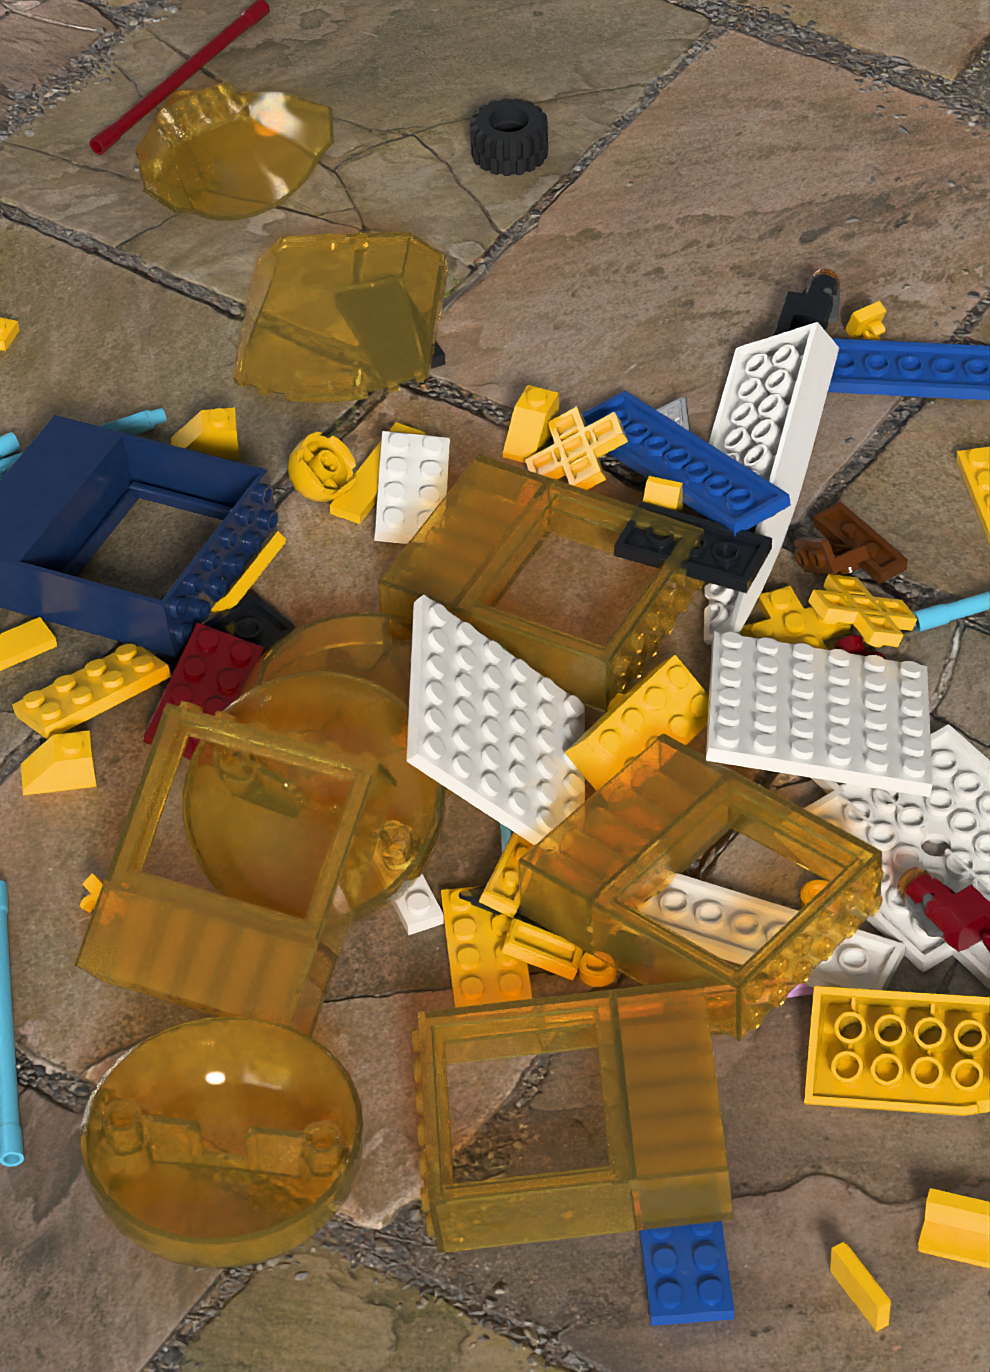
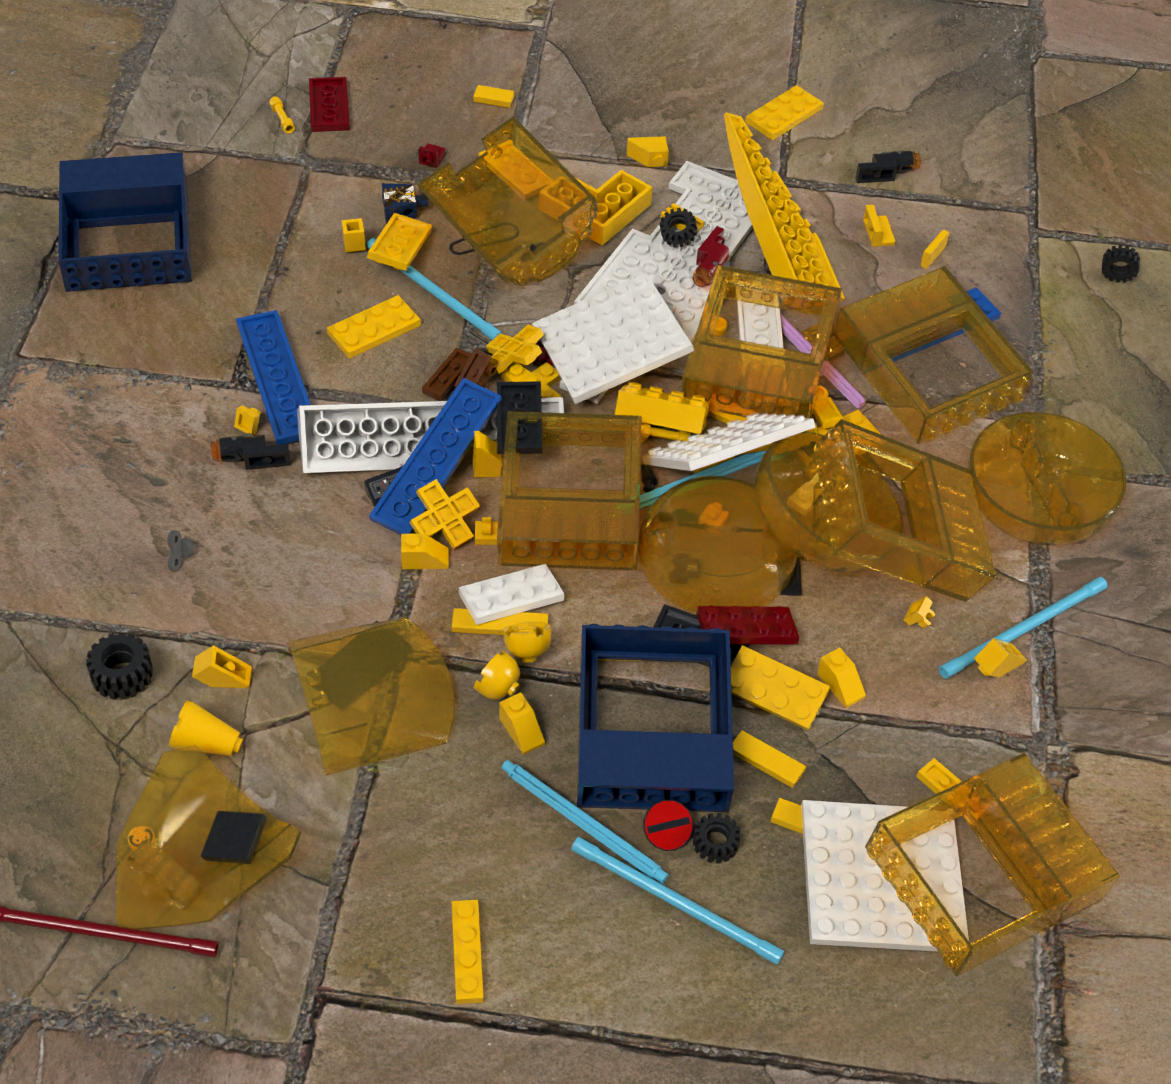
camera: 120 degrees left, 5 degrees up
(213, 173) = (233, 837): none -> black tile
(276, 426) = (499, 677): none -> yellow cylinder
(370, 176) = (205, 731): none -> yellow cone
(454, 216) = (221, 669): none -> yellow slope
(664, 213) = (179, 549): none -> dark grey piece

